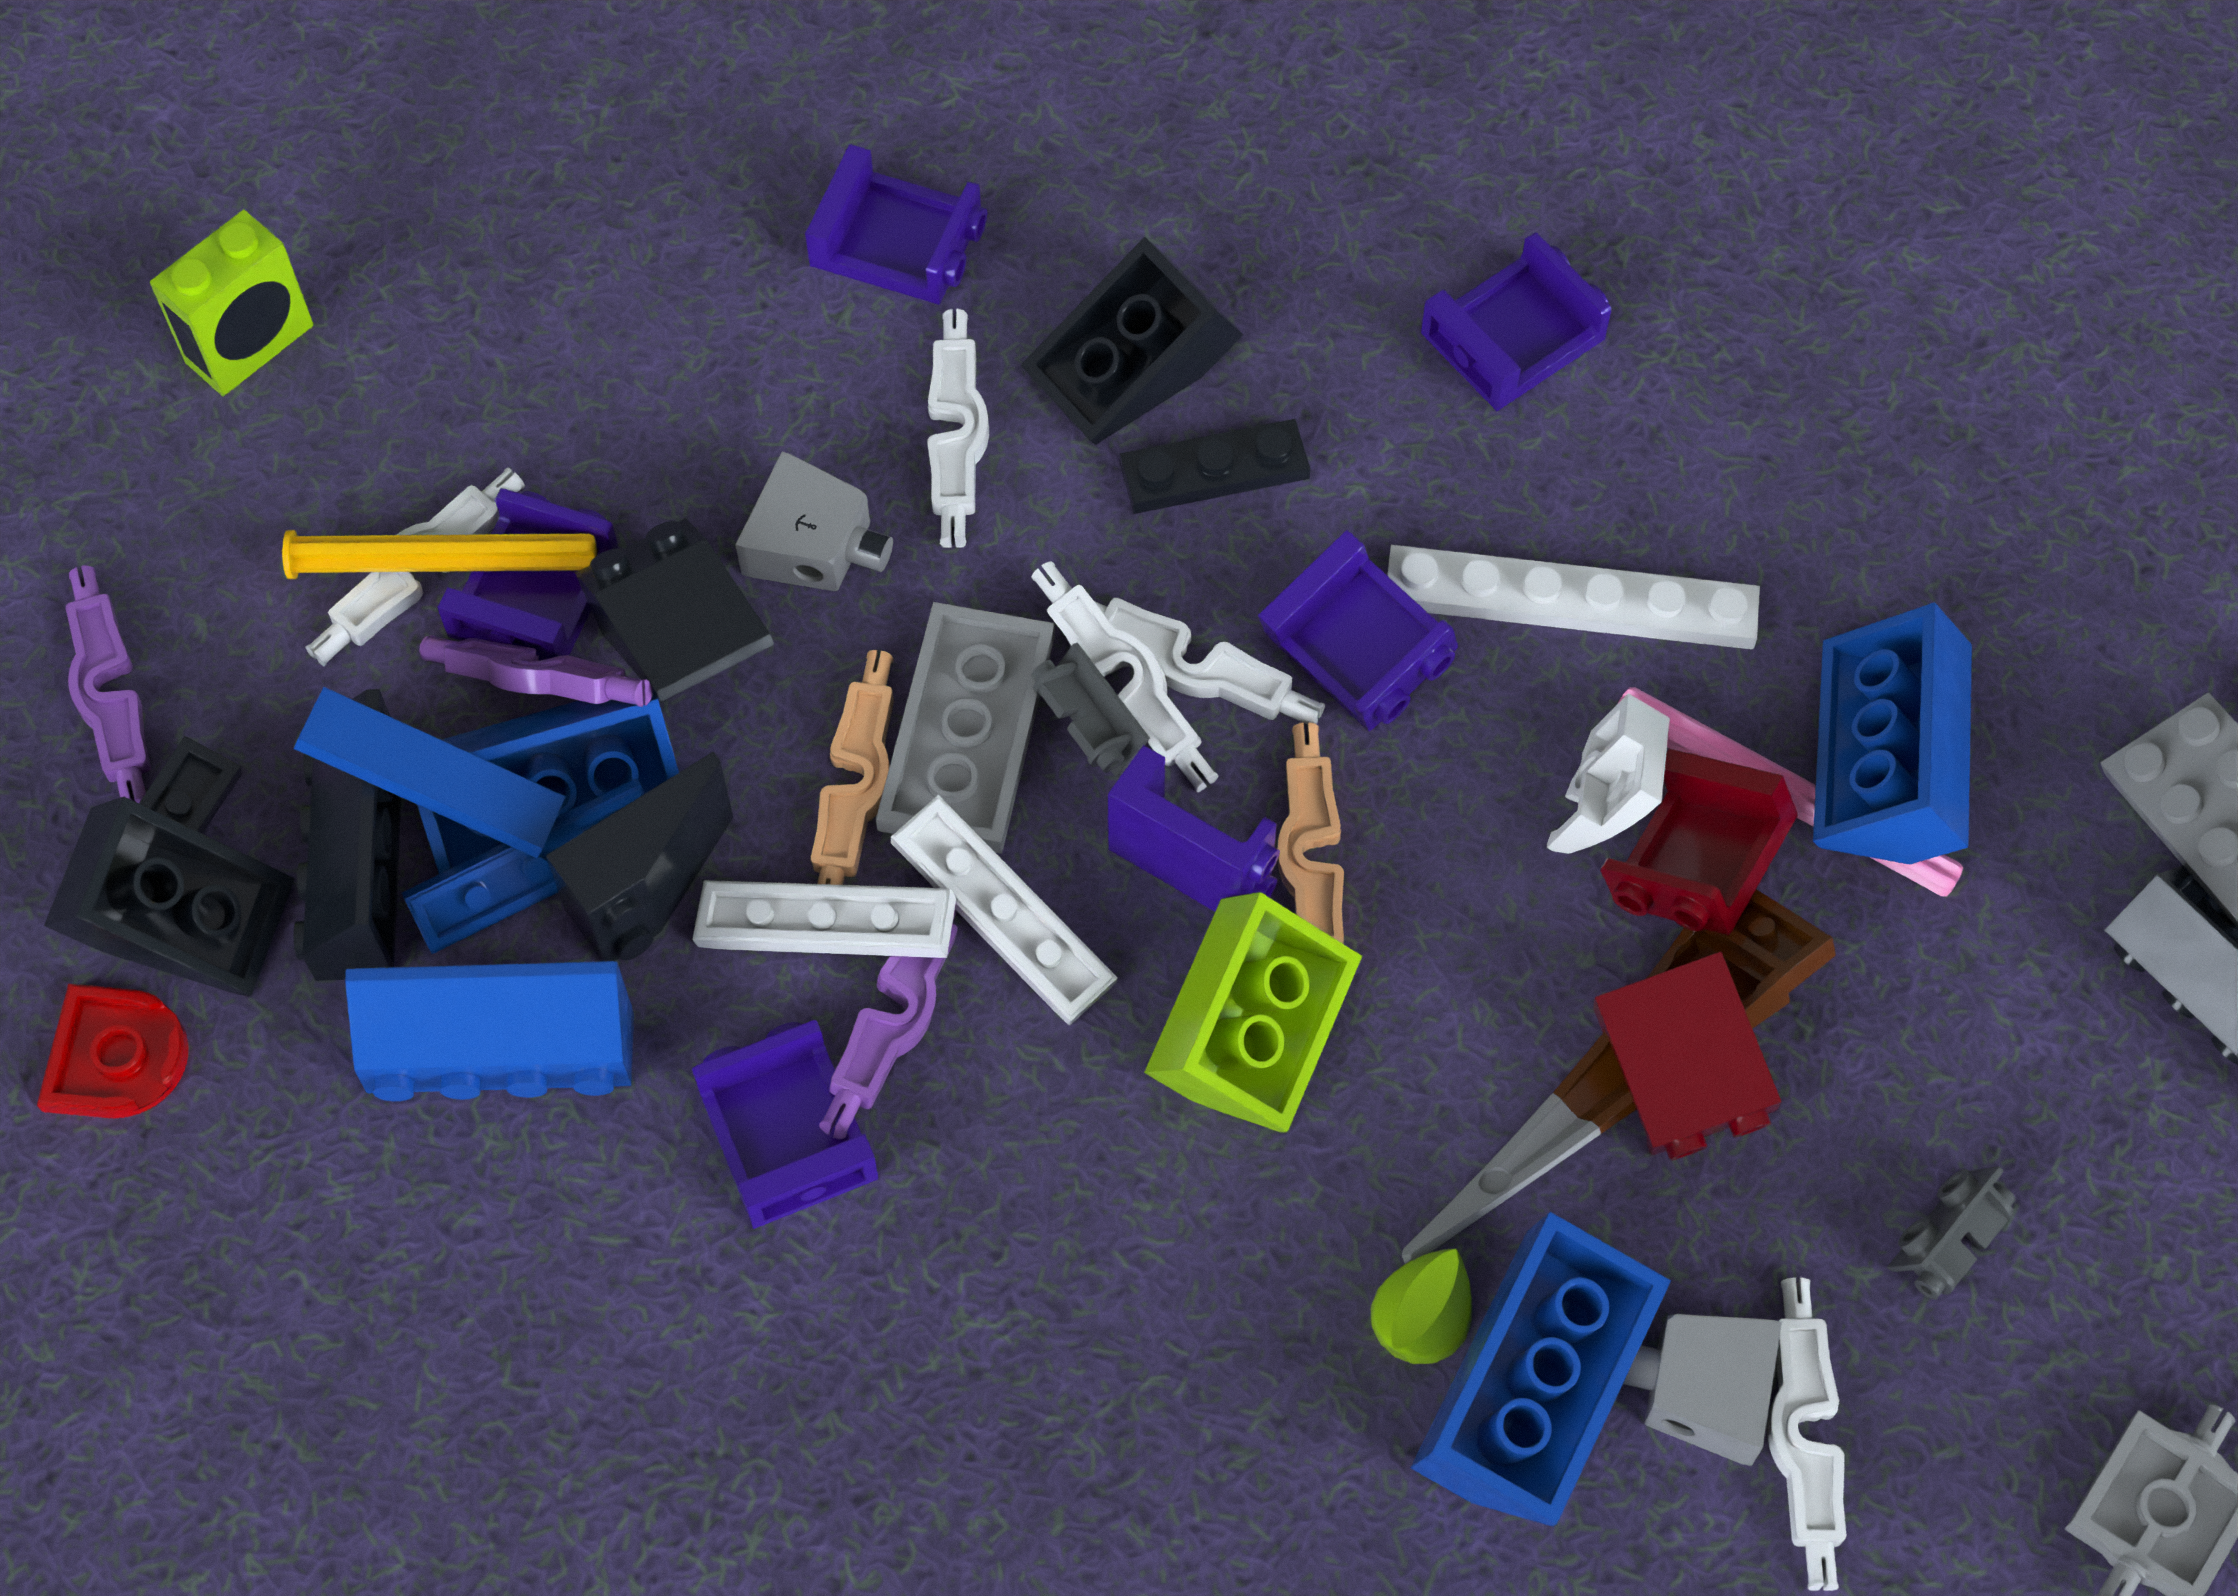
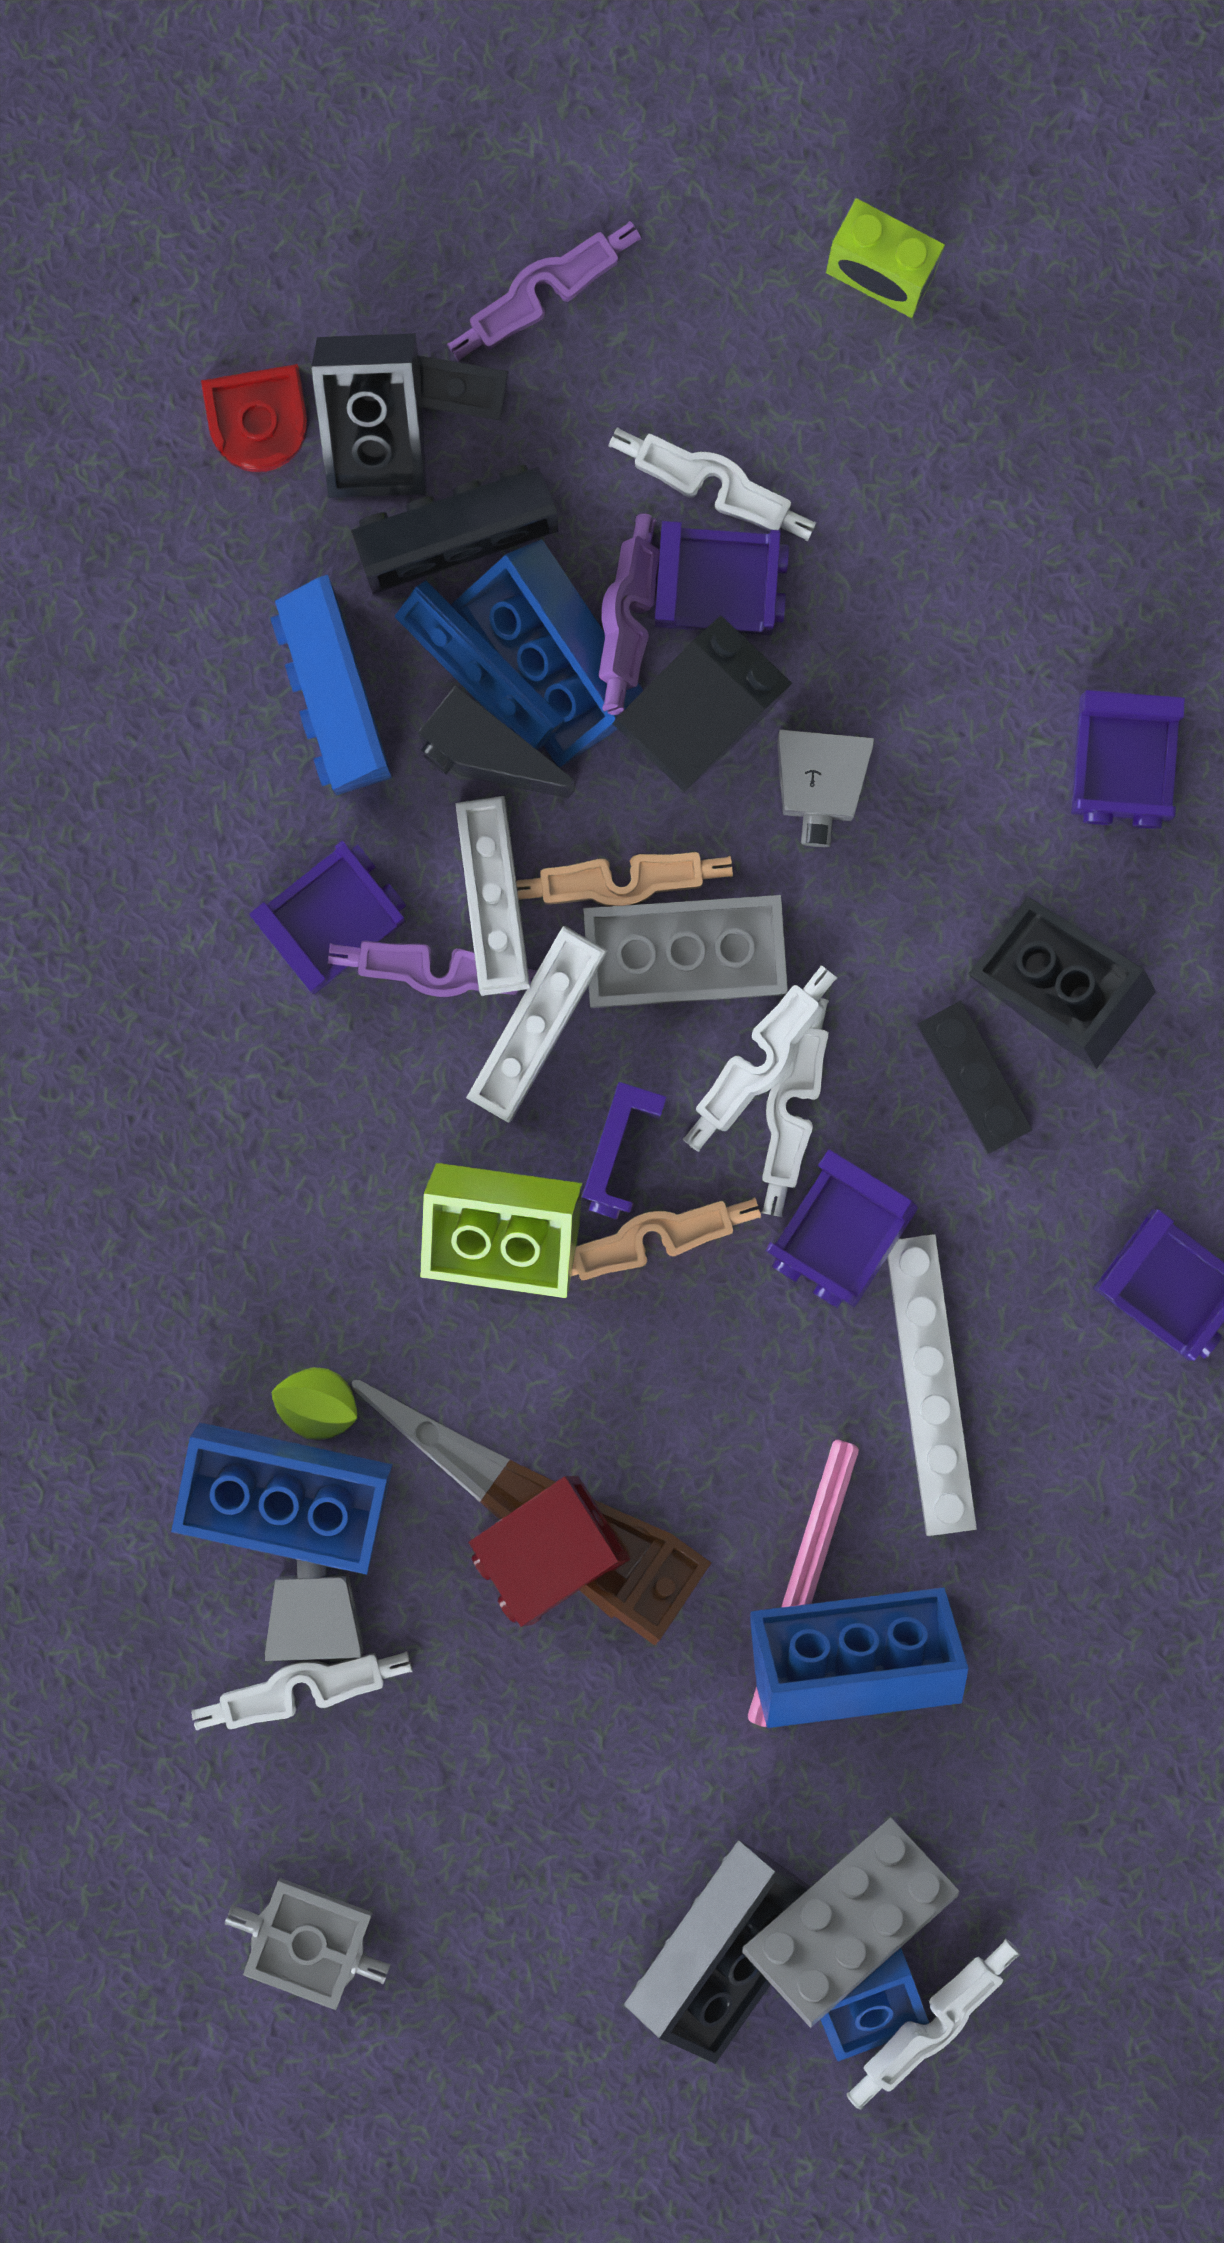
camera: 75 degrees right, 25 degrees up
(429, 772) = (500, 575): blue tile -> none
(436, 553) = (716, 501): yellow axle -> none
(955, 452) = (928, 867): white piece -> none
(1100, 718) = (705, 1060): dark grey hinge -> none
(1617, 776) = (773, 1453): white slope -> none
(1704, 844) = (723, 1529): dark red panel -> none
(1969, 1208) = (496, 1772): dark grey hinge -> none

